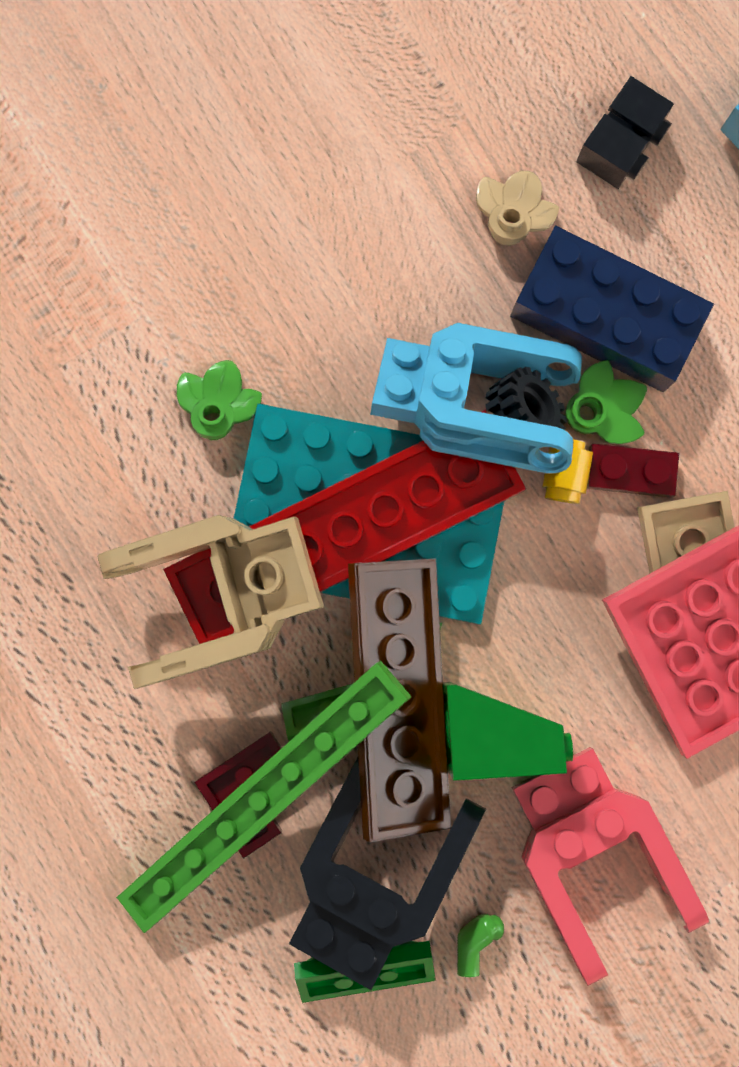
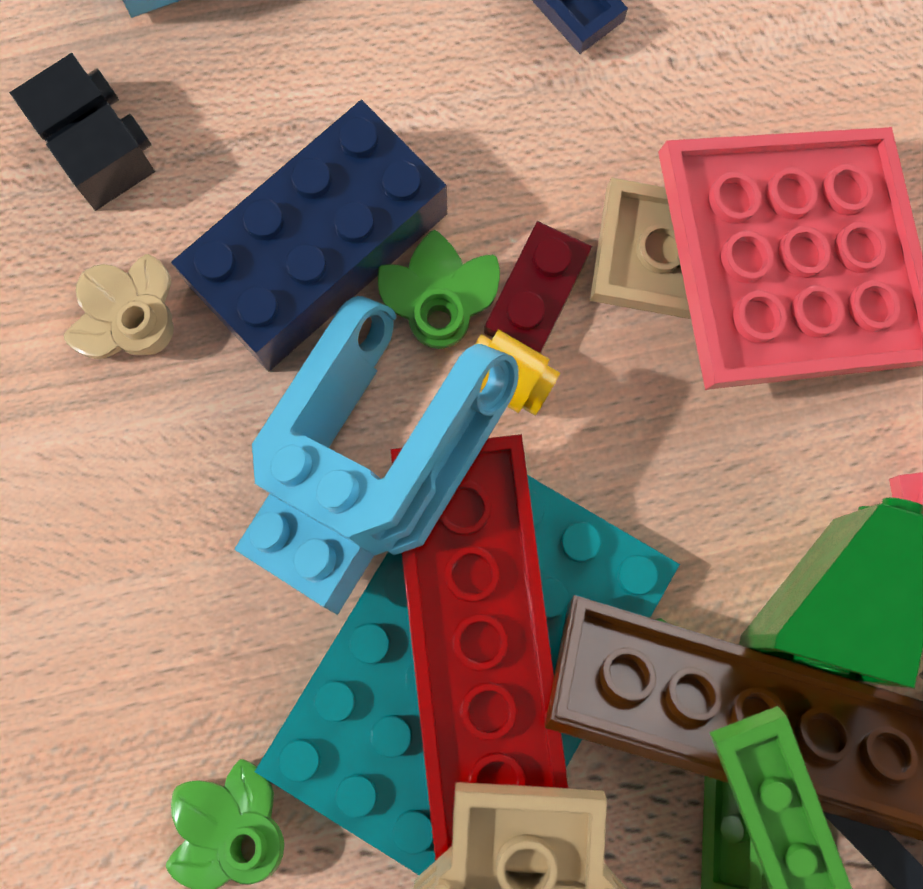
camera: 75 degrees left, 5 degrees down
(526, 398) = (397, 390): black tyre -> none

